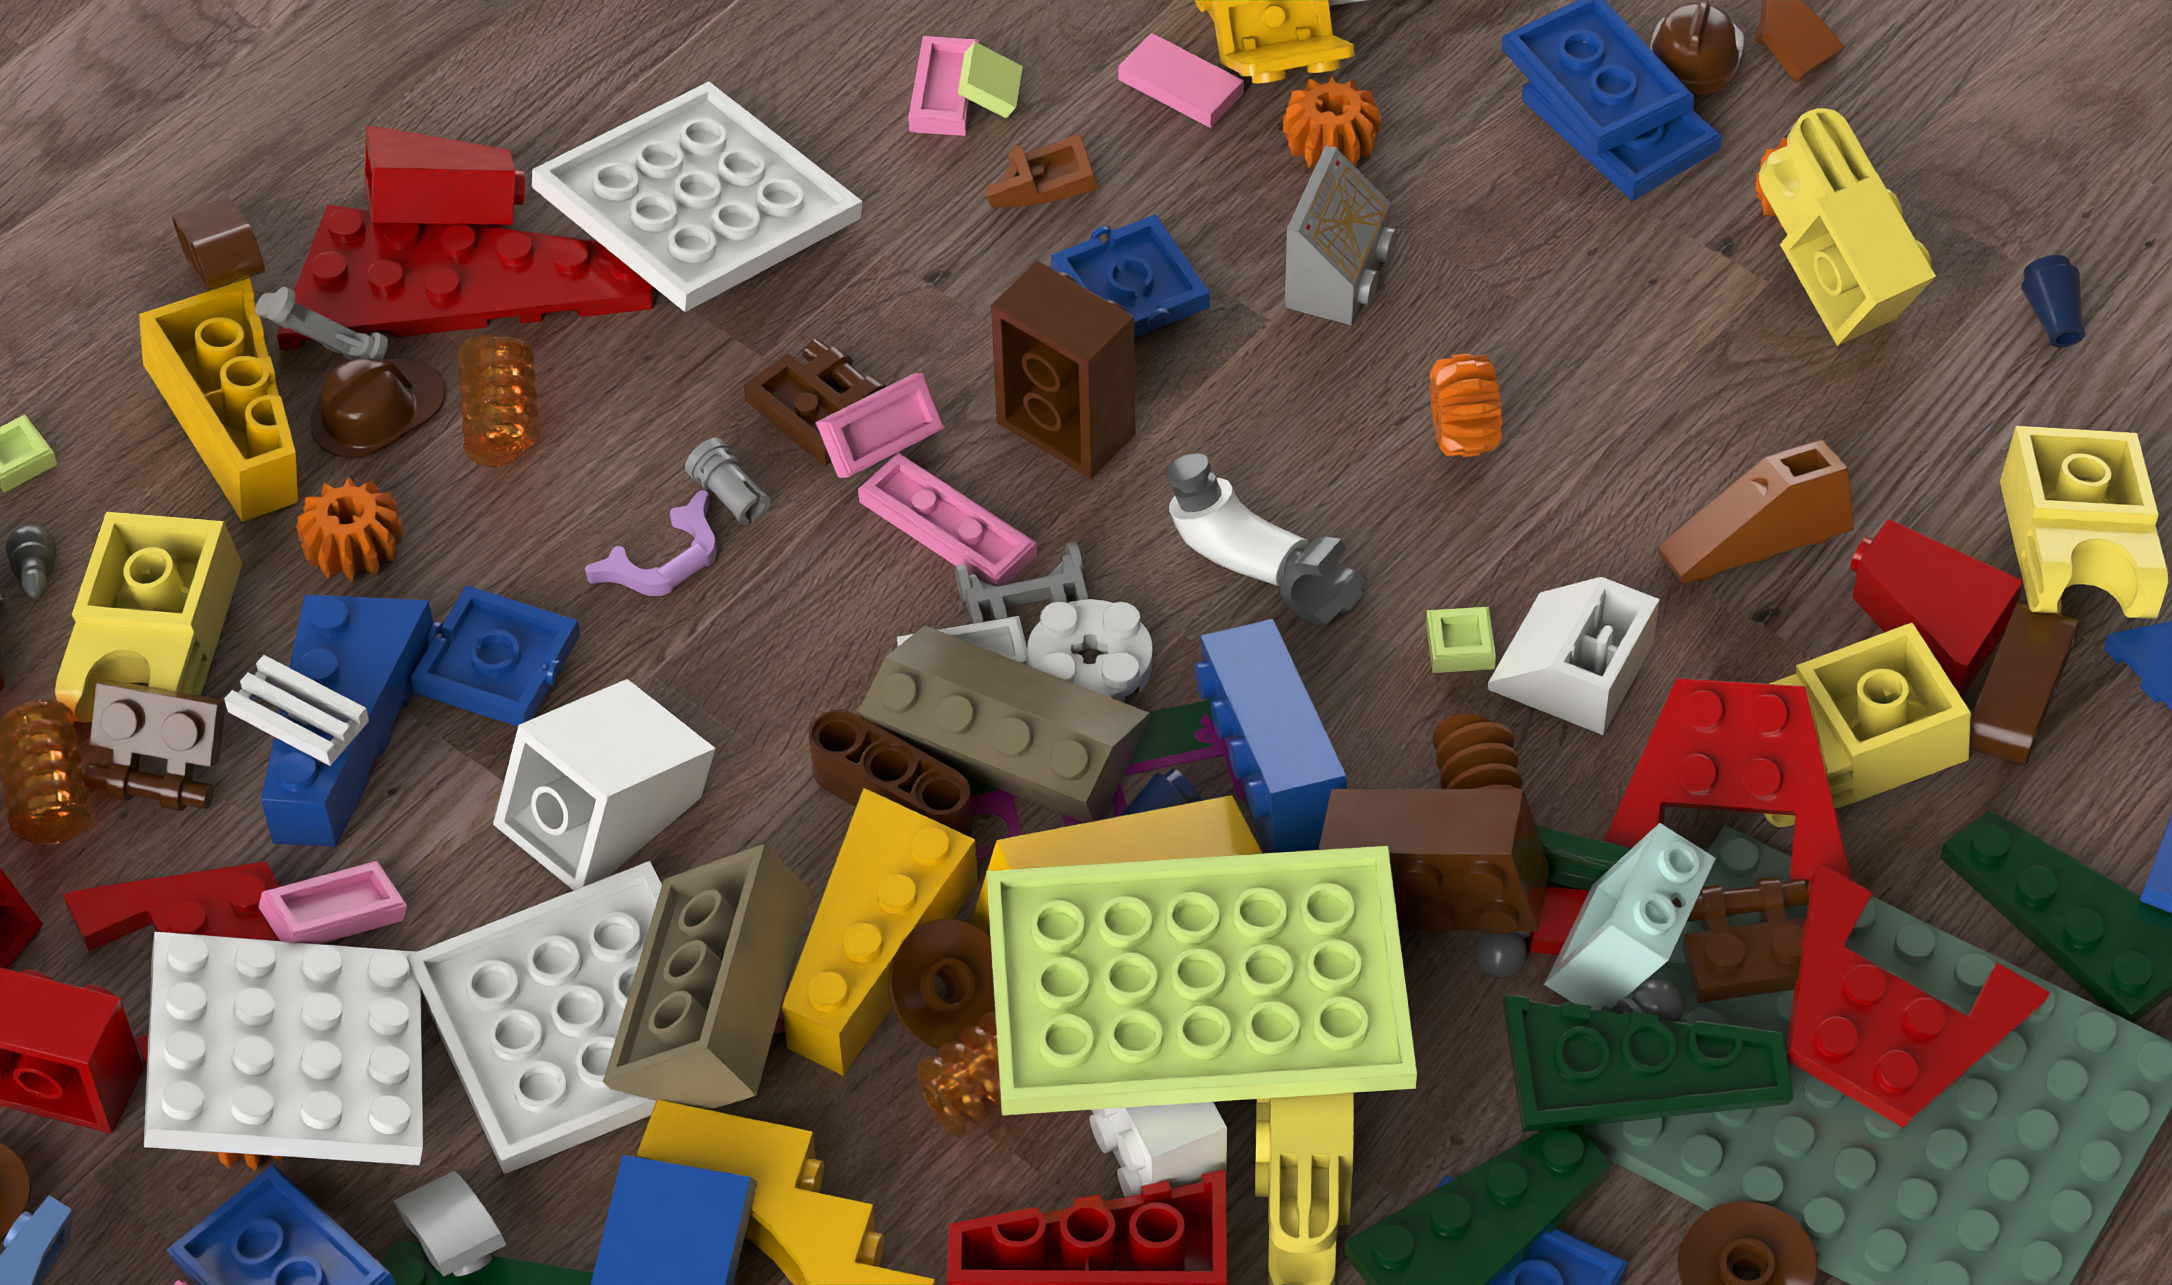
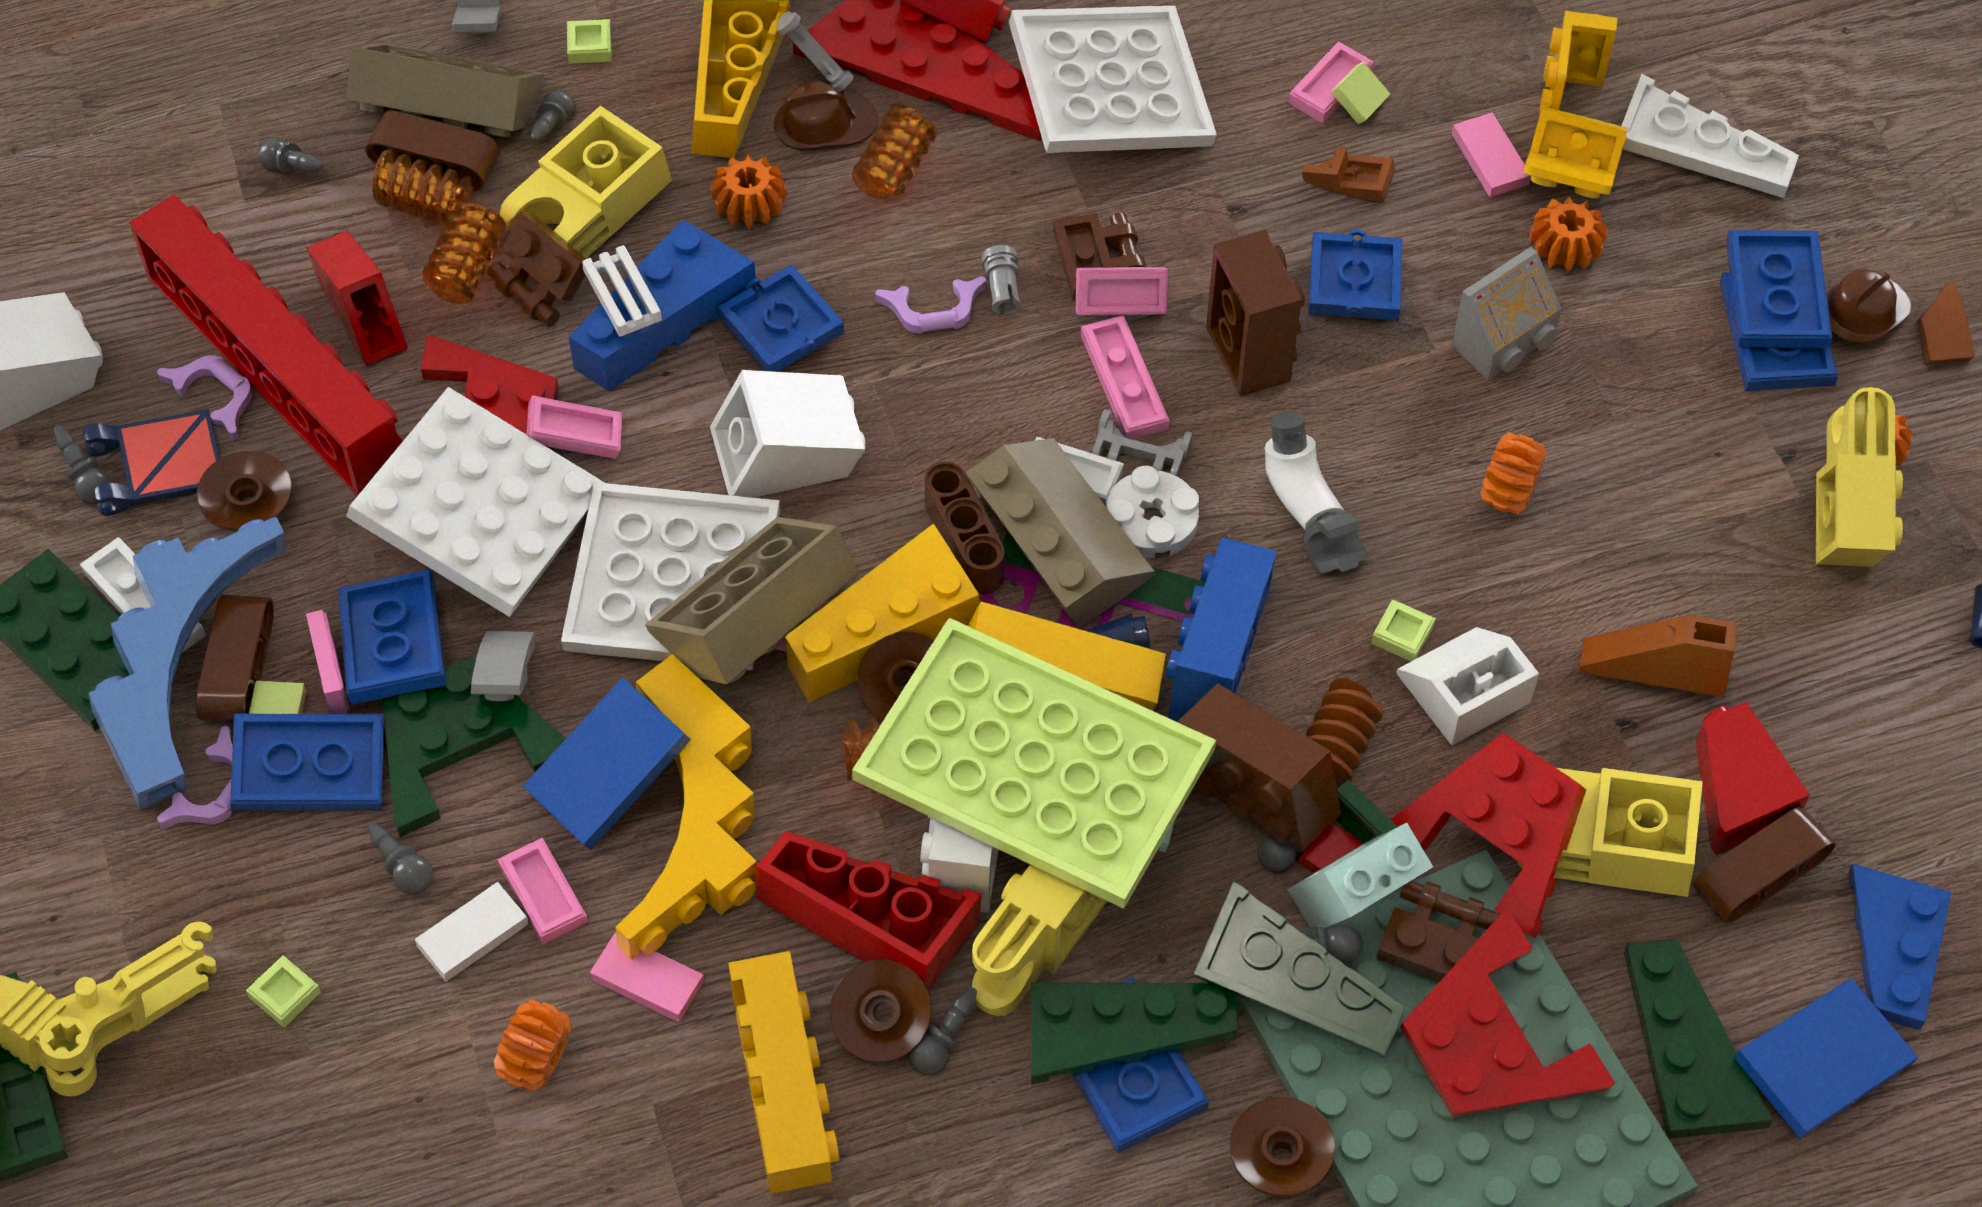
camera: 30 degrees right, 5 degrees up
(2083, 517) = (1886, 773): light yellow brick -> none

